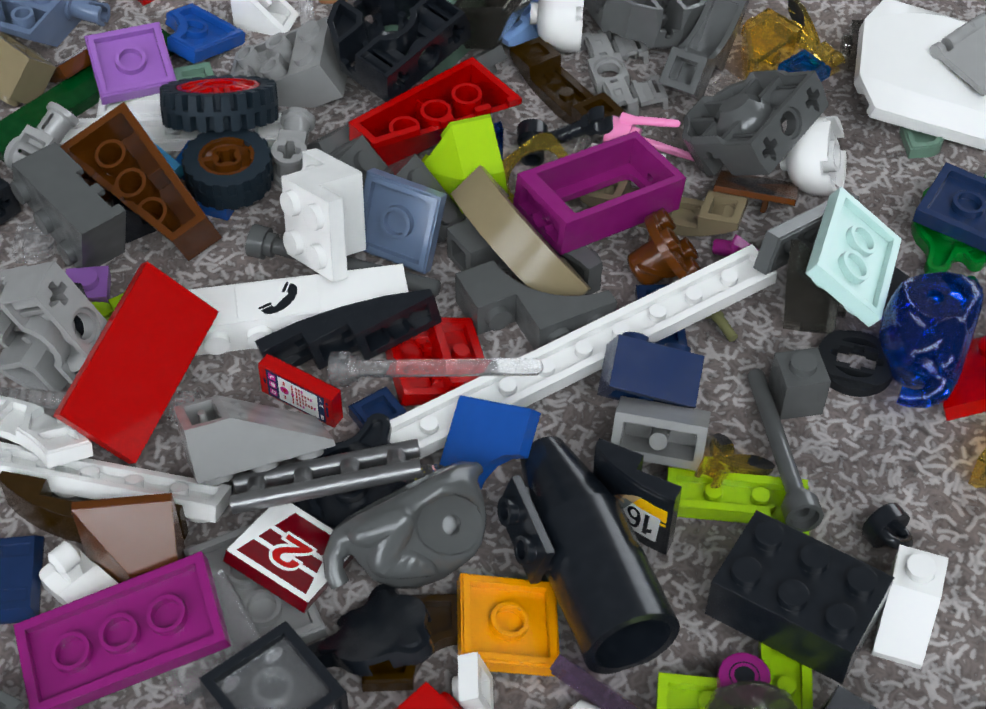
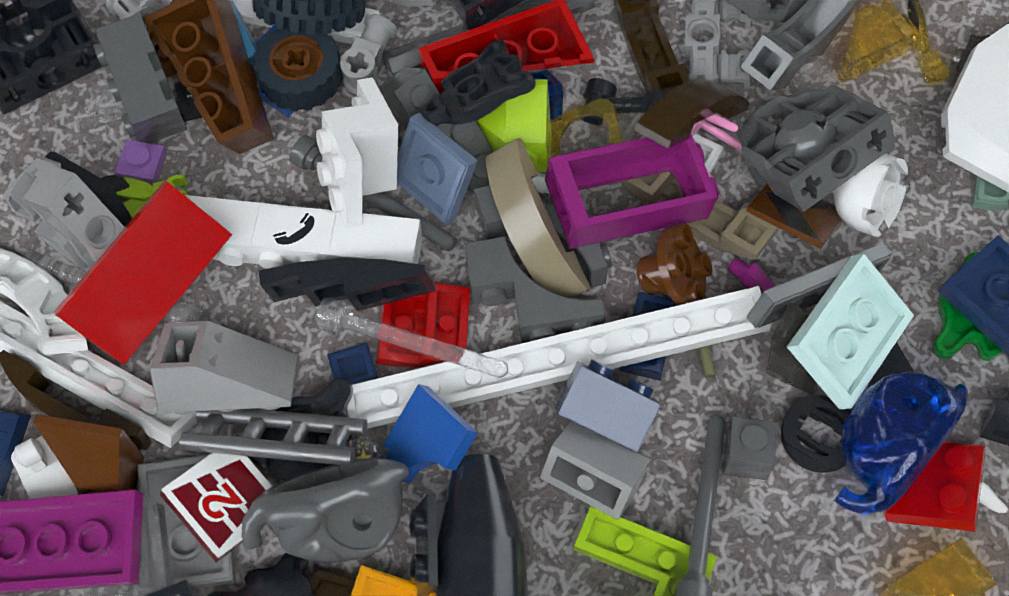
camera: 20 degrees right, 15 degrees up
(300, 390) = (288, 328): red tile -> none
(426, 132) = (479, 87): none -> black tile
(623, 117) = (675, 114): none -> dark brown slope
(645, 499) = (536, 526): black slope -> none
(725, 460) = (650, 516): clear yellow piece -> none
(805, 62) = (904, 75): clear blue tile -> none

